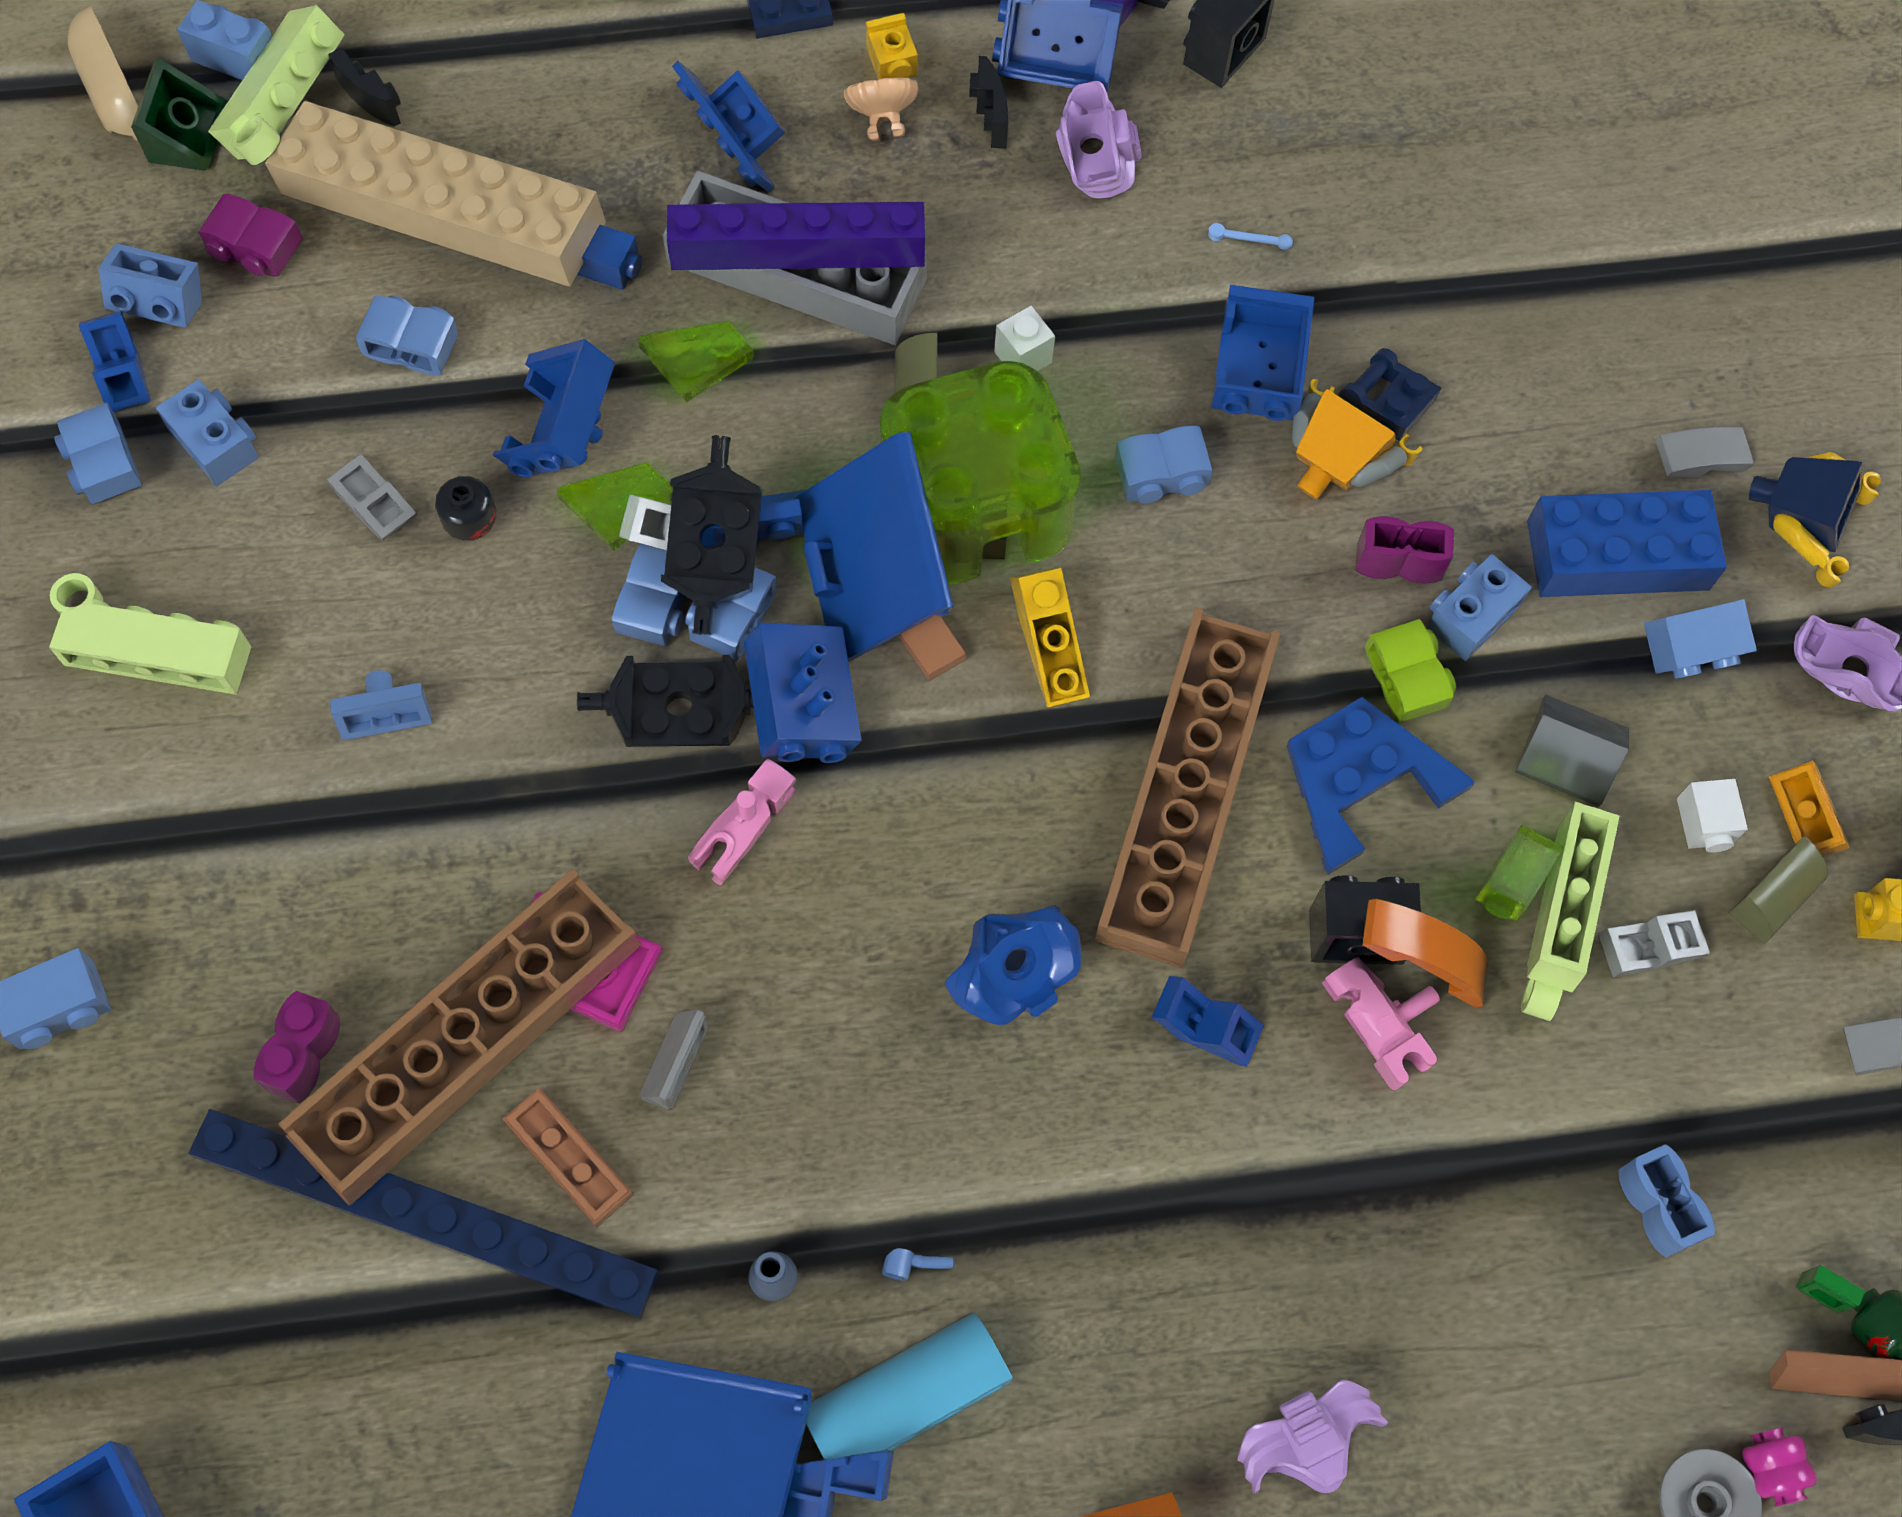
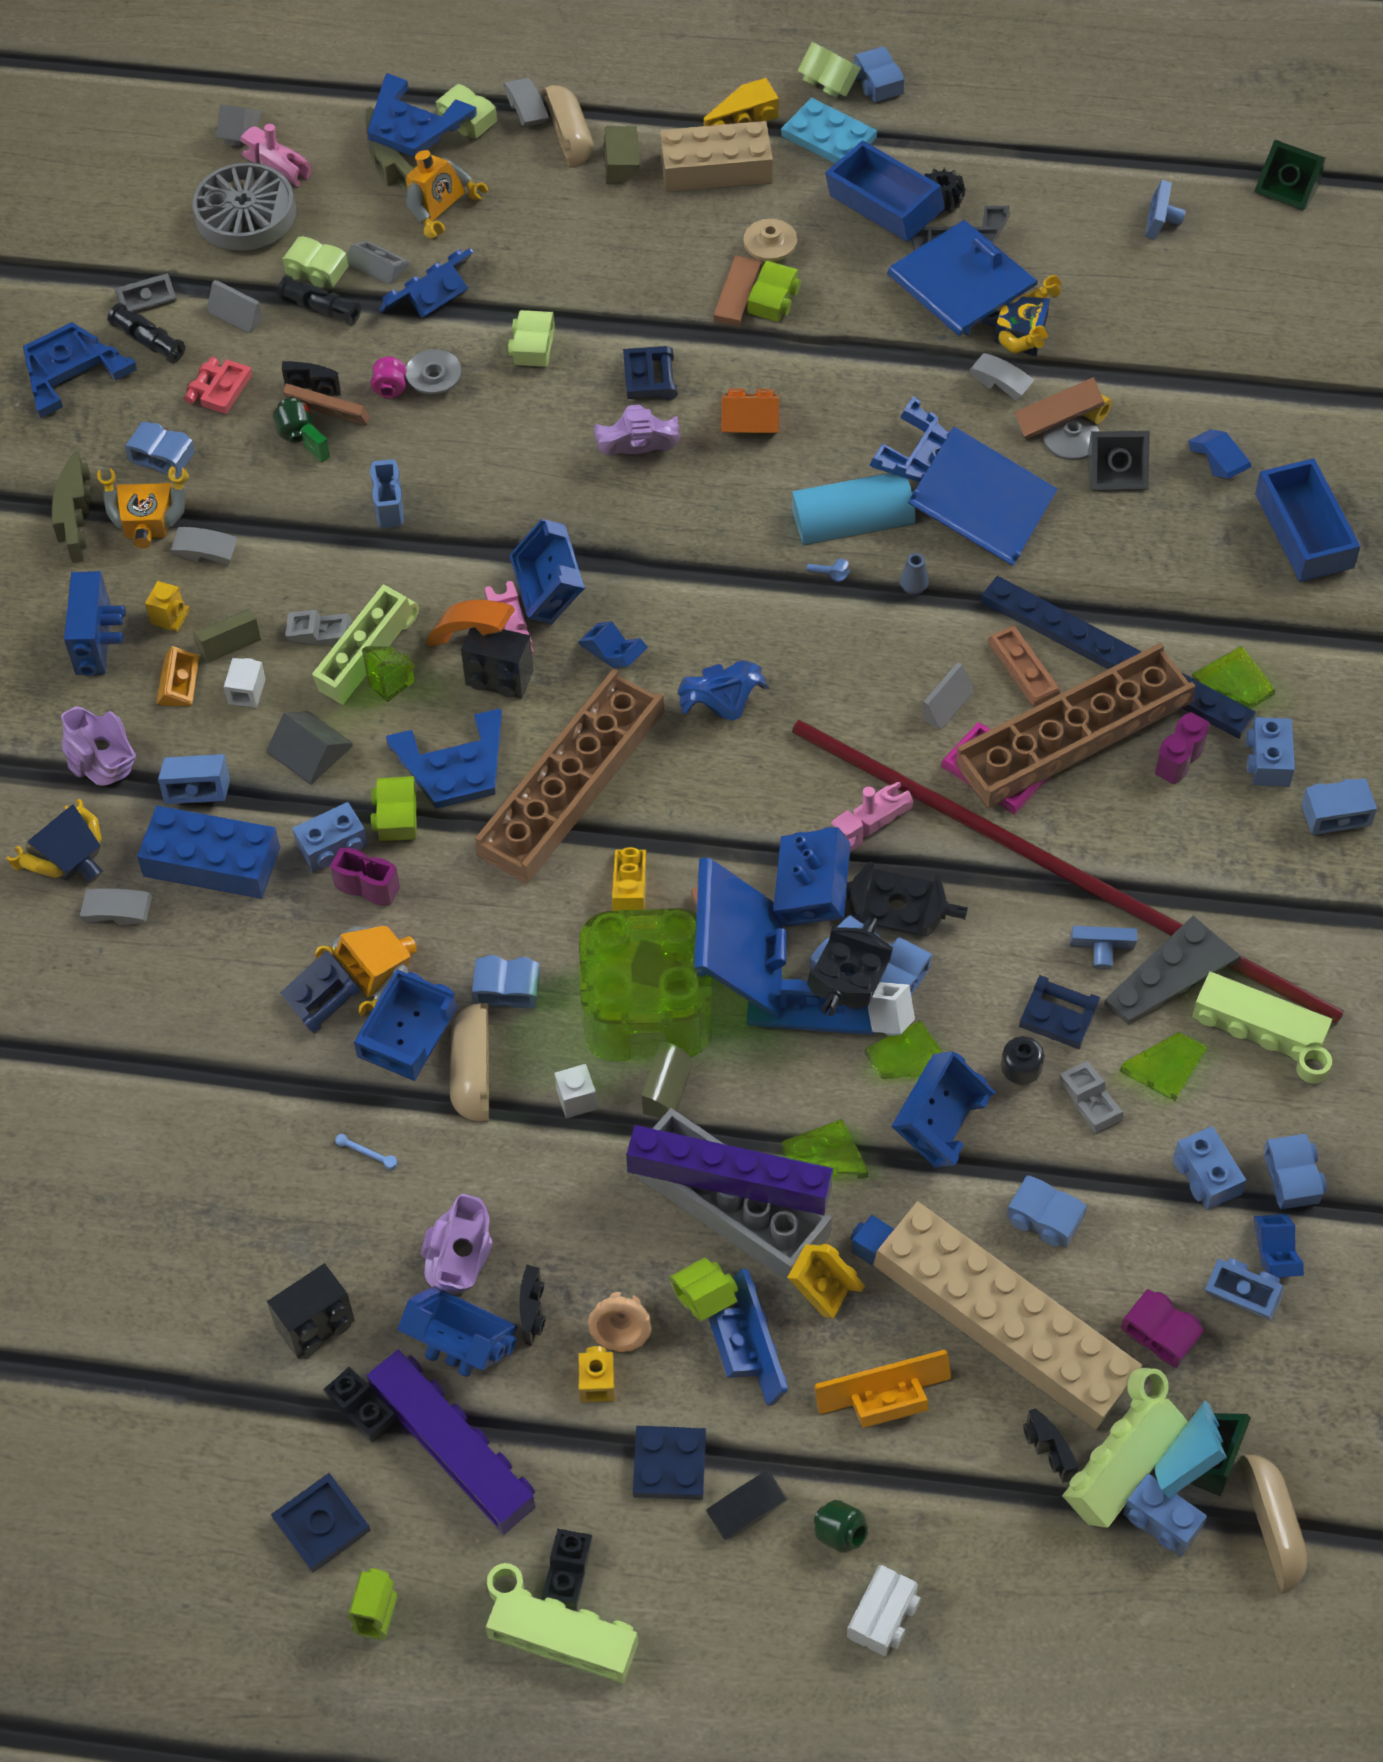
camera: 160 degrees left, 10 degrees down
(158, 1080) = (1271, 751): none -> medium blue brick
(200, 79) = (1191, 1453): none -> medium azure slope
(223, 1209) = (1236, 678): none -> clear neon green wing
(273, 693) = (1171, 971): none -> dark grey wing
(276, 564) = (1166, 1064): none -> clear neon green wing
(432, 591) = (1055, 1020): none -> dark blue plate
(469, 819) = (1053, 864): none -> dark red piece
(559, 96) = (885, 1391): none -> light orange bracket
(657, 183) = (824, 1278): none -> yellow bracket
(797, 145) = (704, 1288): none -> lime brick
(1168, 363) = (470, 1062): none -> tan brick
(1351, 1105) = (546, 571): none -> blue piece

